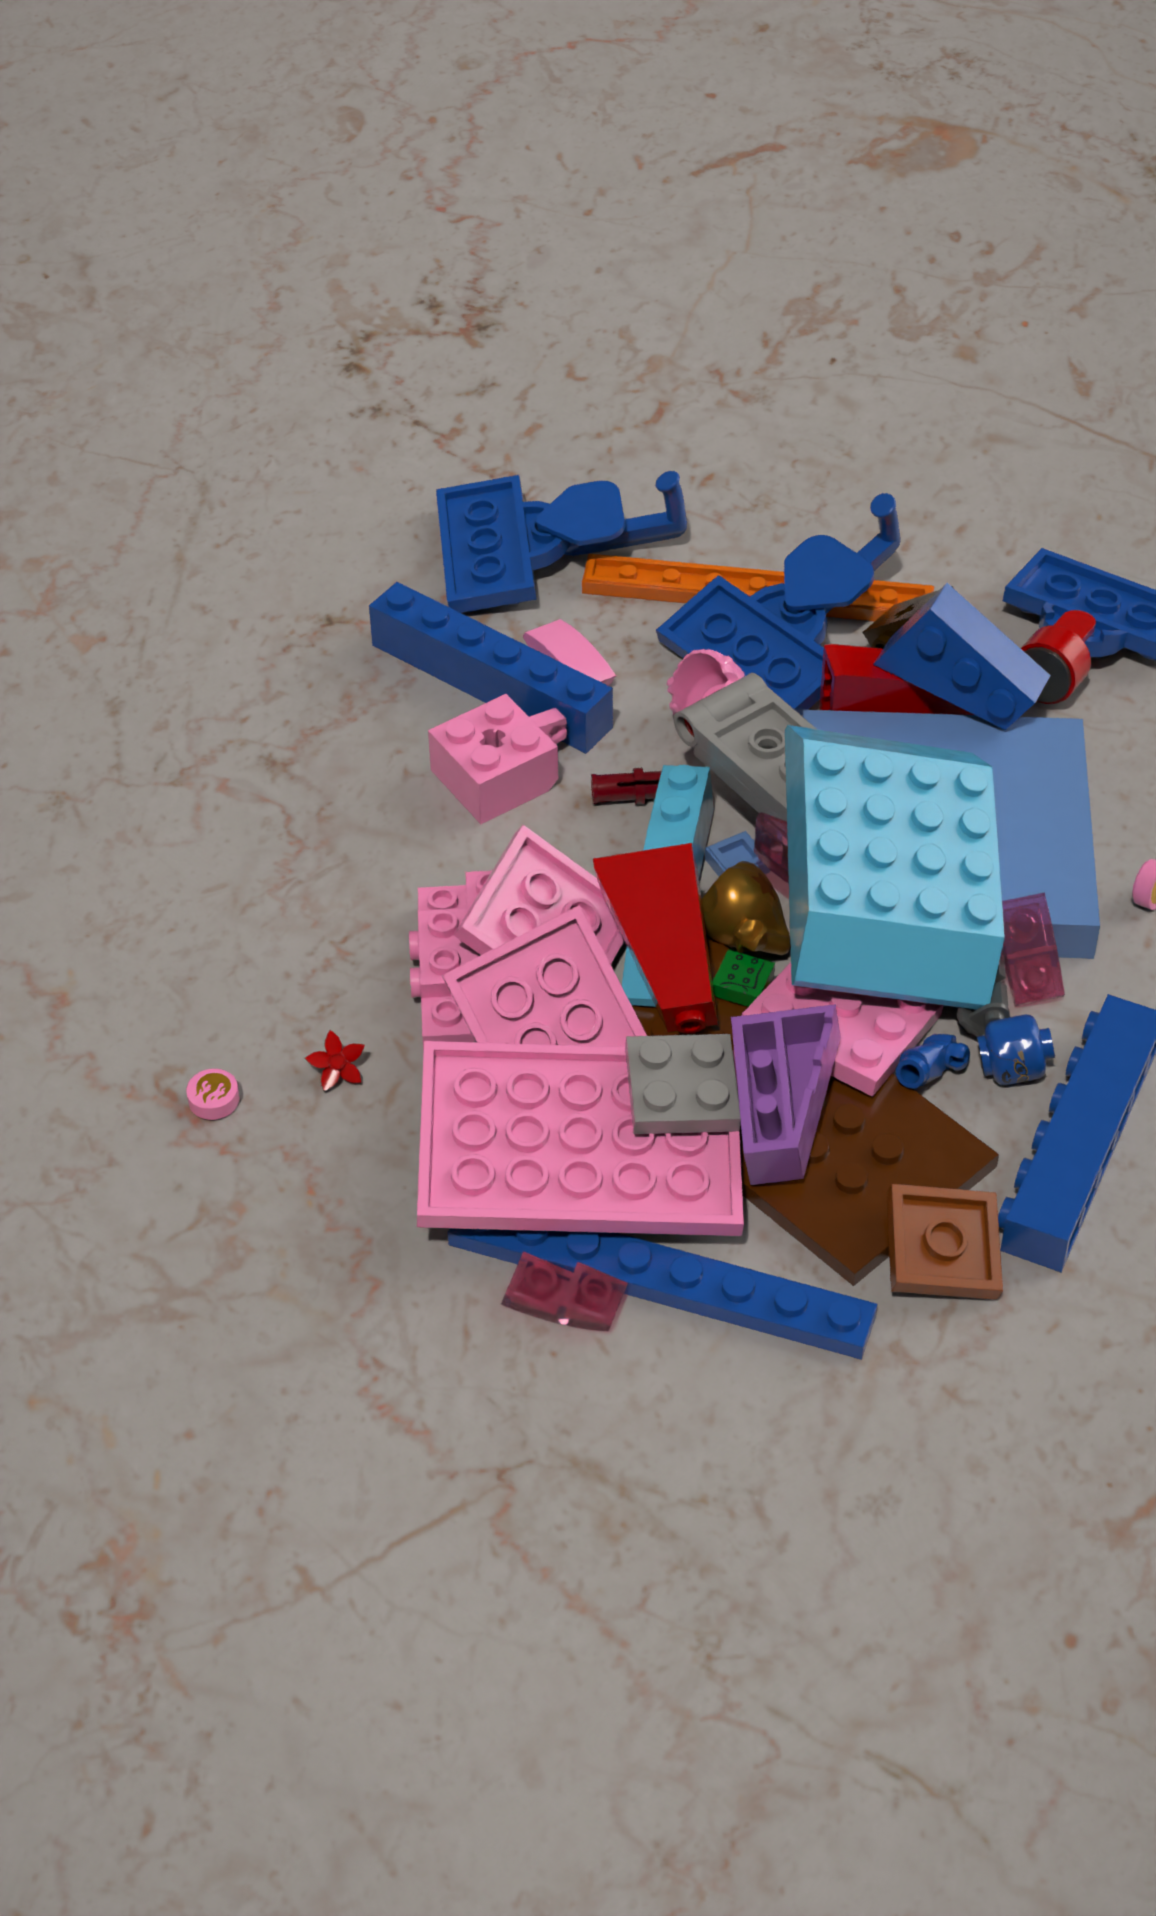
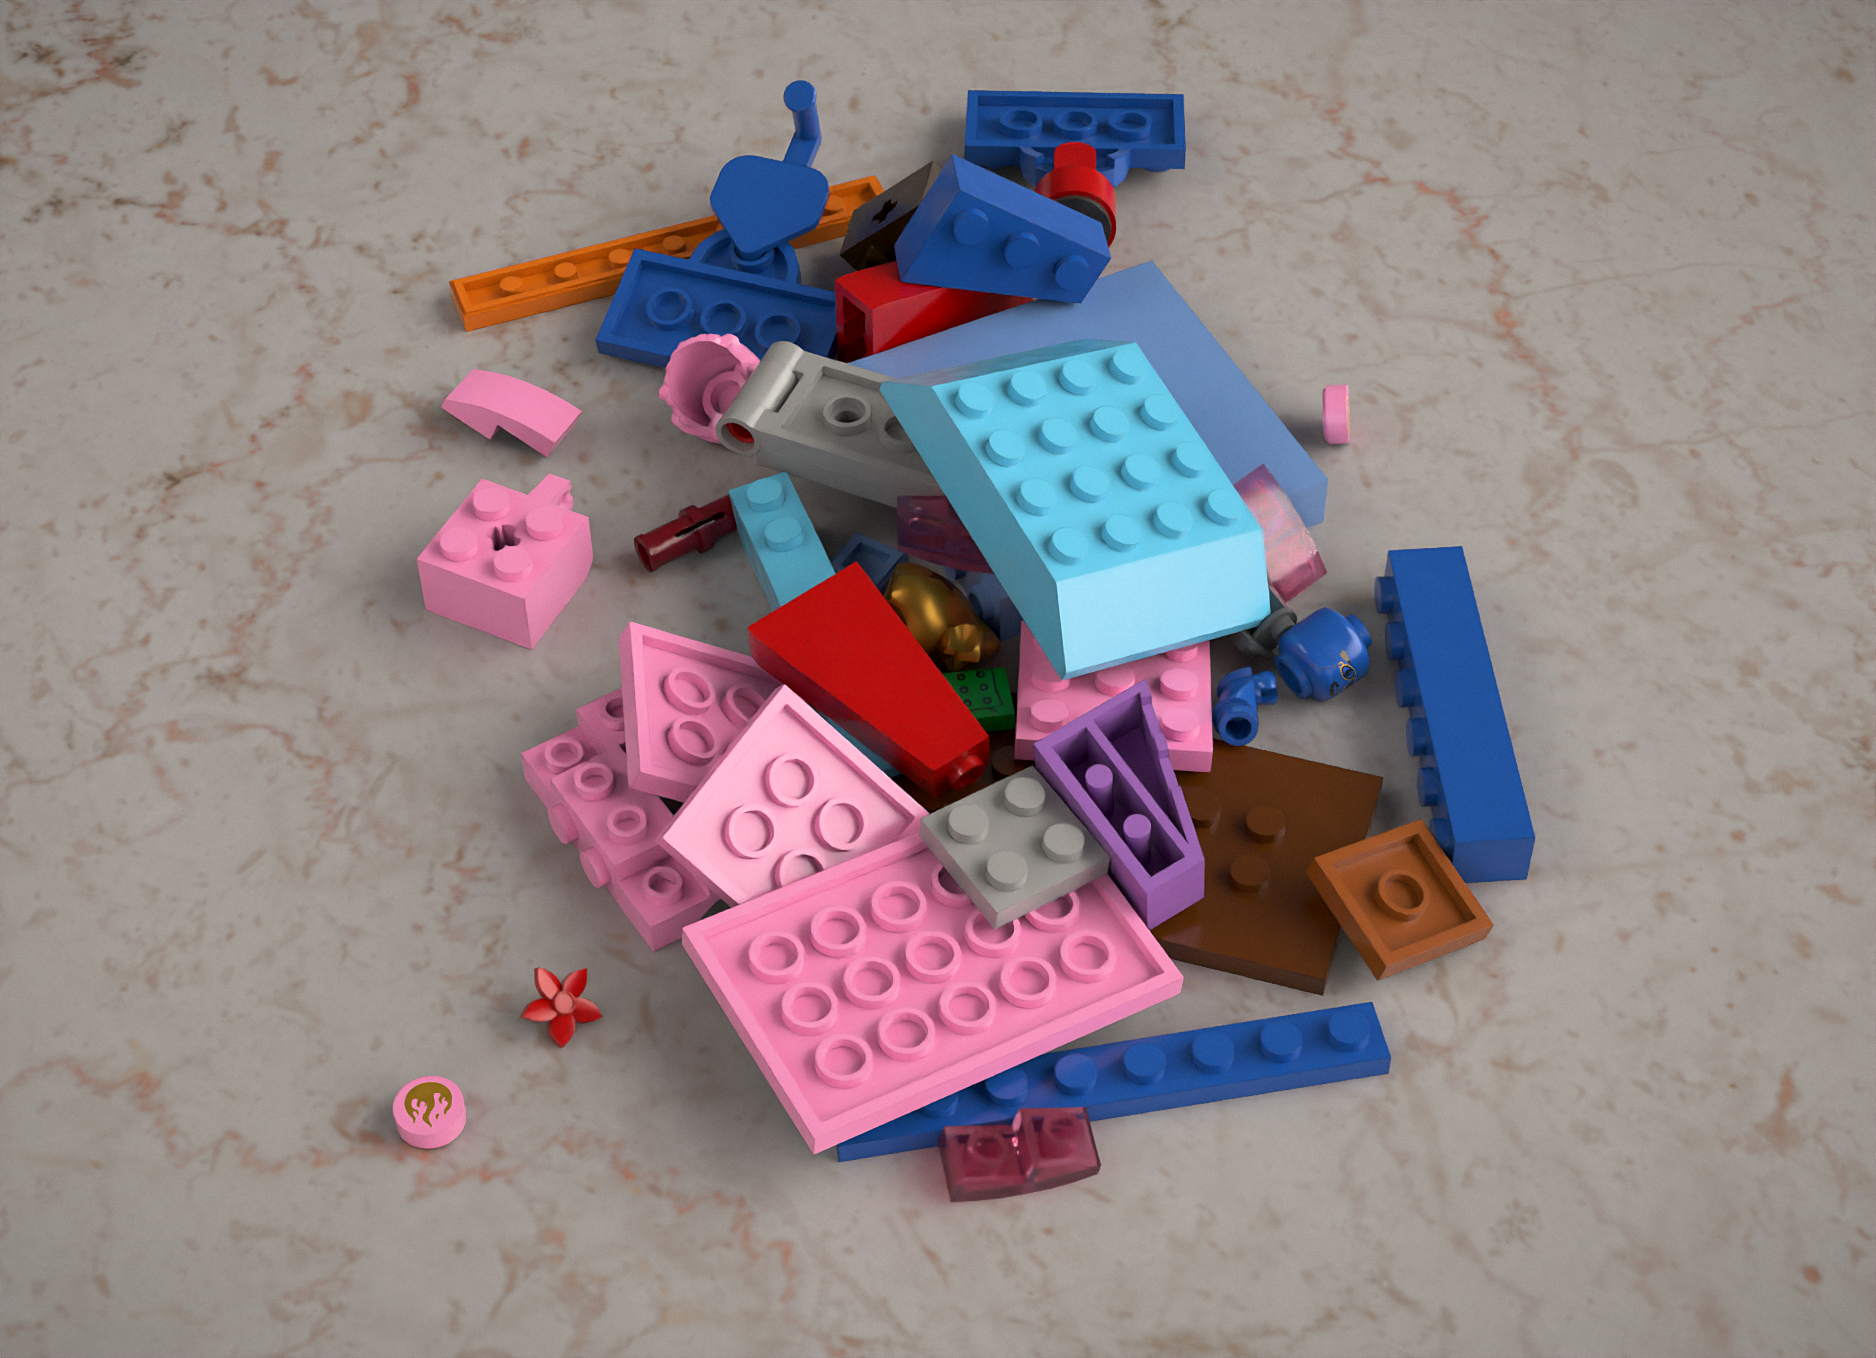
camera: 30 degrees left, 0 degrees up
(488, 663) = (416, 452): blue brick -> none
(498, 539) = (341, 308): blue plate -> none

